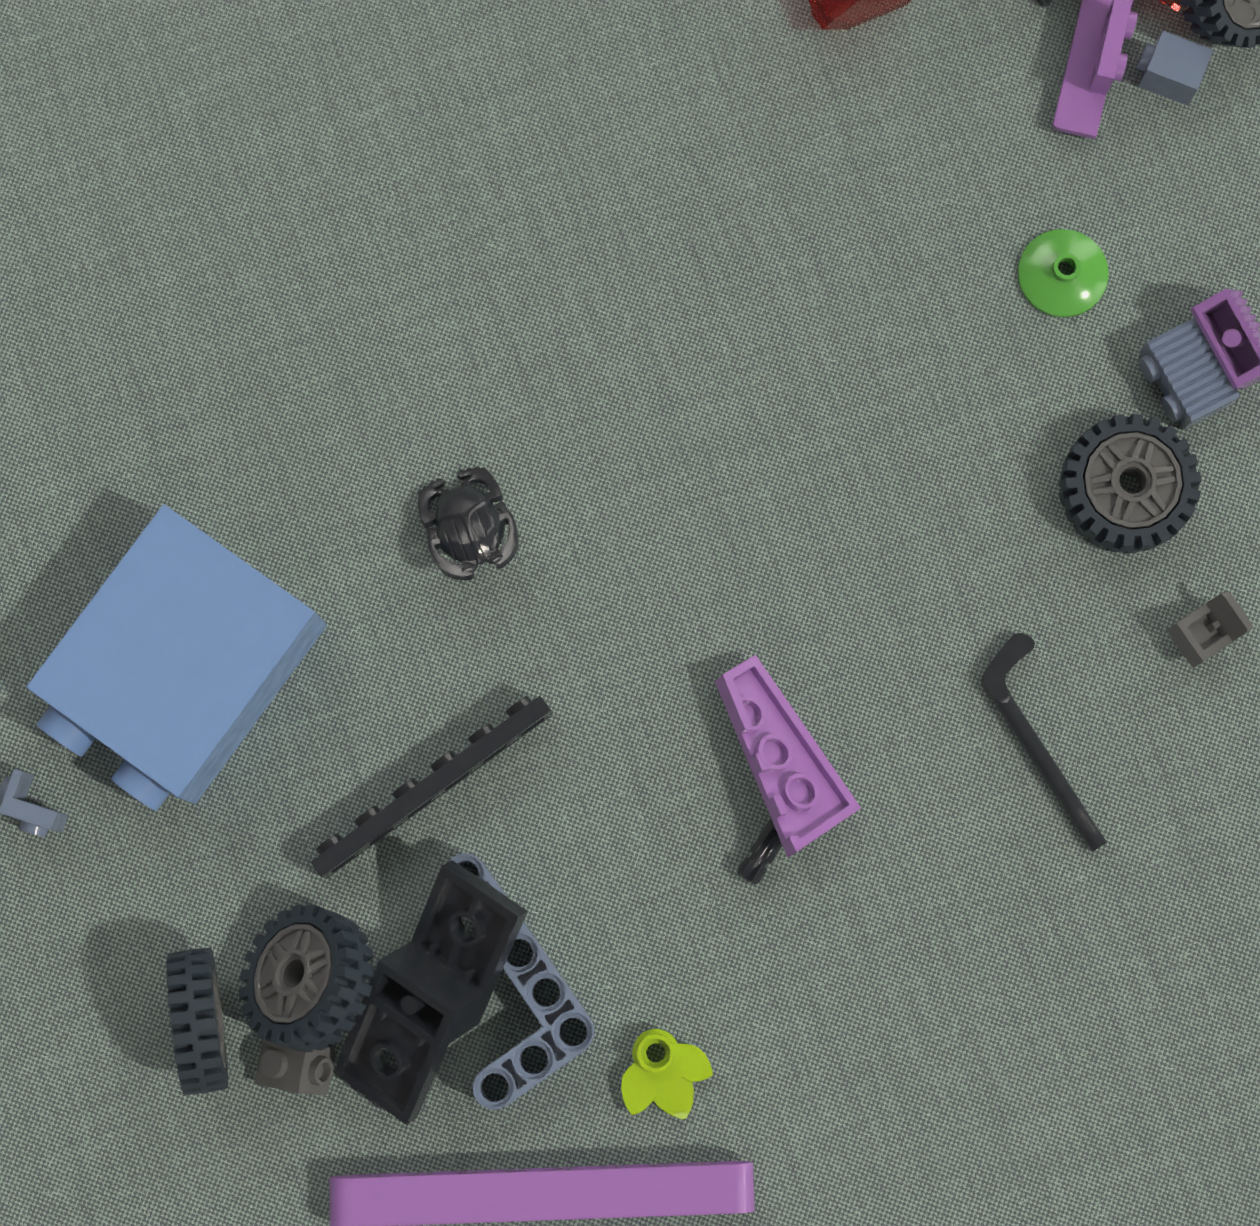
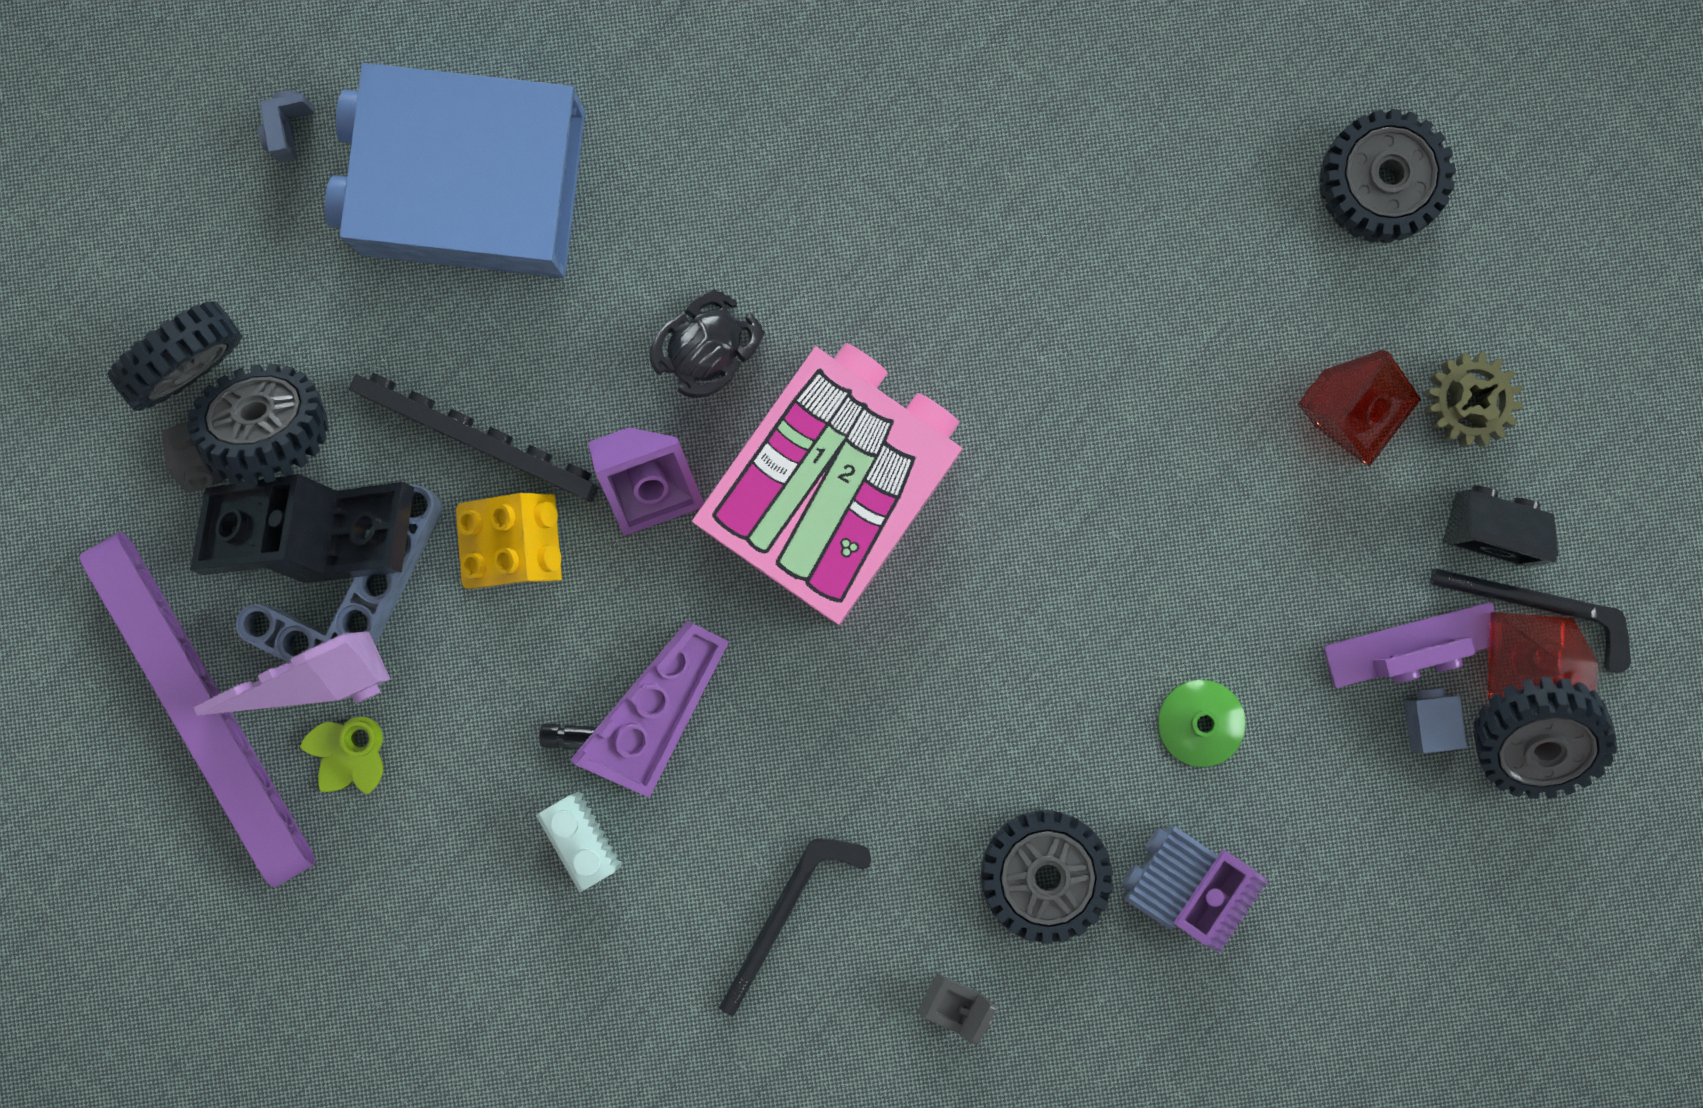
camera: 60 degrees right, 5 degrees up
(546, 810) = (508, 540): none -> yellow bracket
(559, 647) = (644, 478): none -> medium lavender slope
(584, 1041) = (325, 673): none -> lavender wedge
(664, 476) = (831, 480): none -> brick
(867, 893) = (579, 841): none -> light aqua brick

